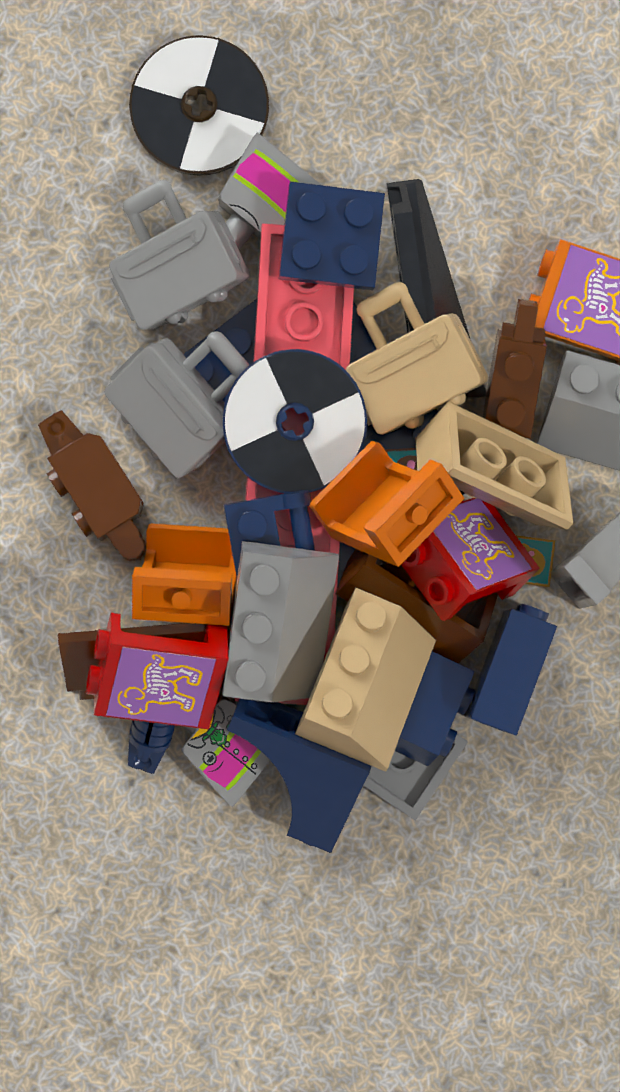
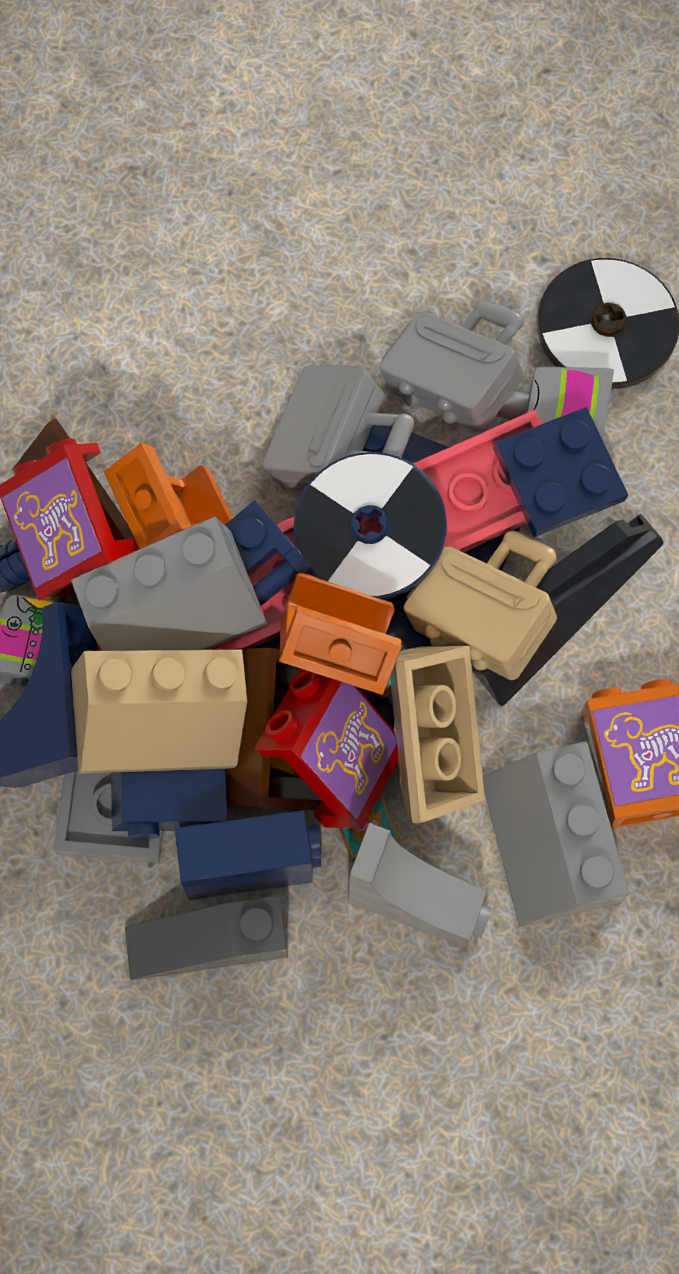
camera: 65 degrees right, 15 degrees down
(96, 484) = (217, 406): reddish brown hinge -> none
(516, 371) = (537, 708): reddish brown hinge -> none
(552, 735) = (207, 938): none -> dark grey slope

